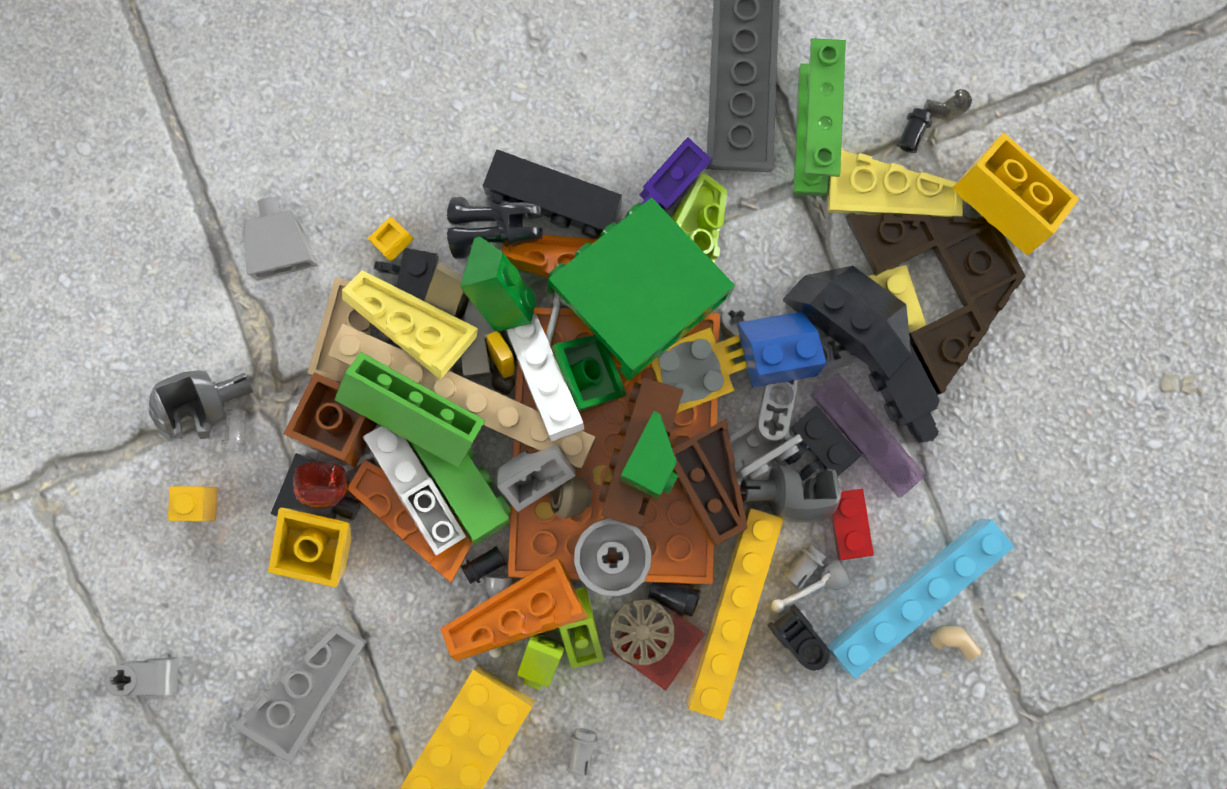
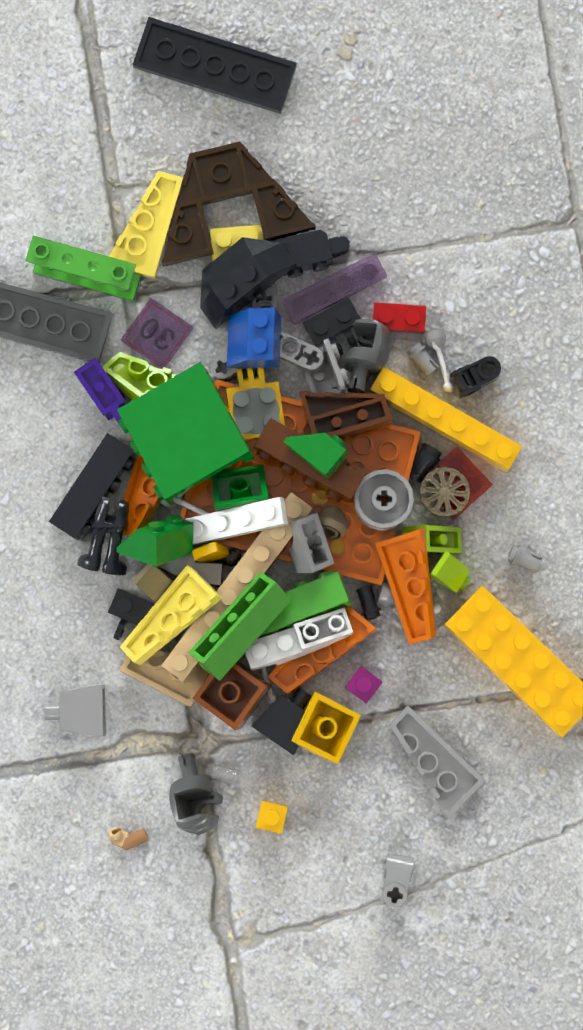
camera: 70 degrees left, 0 degrees up
(134, 332) = (125, 839): none -> arm
(319, 484) = (280, 708): clear red hair -> none
(378, 581) = (363, 684): none -> magenta brick
(390, 239) = (98, 621): yellow tile -> none
(760, 230) = (157, 333): none -> clear purple piece
(914, 130) = (106, 196): black pin -> none
(919, 597) = (464, 279): medium azure brick -> none
(951, 108) = (96, 166): clear smoke arm -> none
(955, 637) = (500, 260): tan arm -> none
(1016, 194) = (176, 134): yellow brick -> none
(1113, 224) = (214, 65): none -> black plate

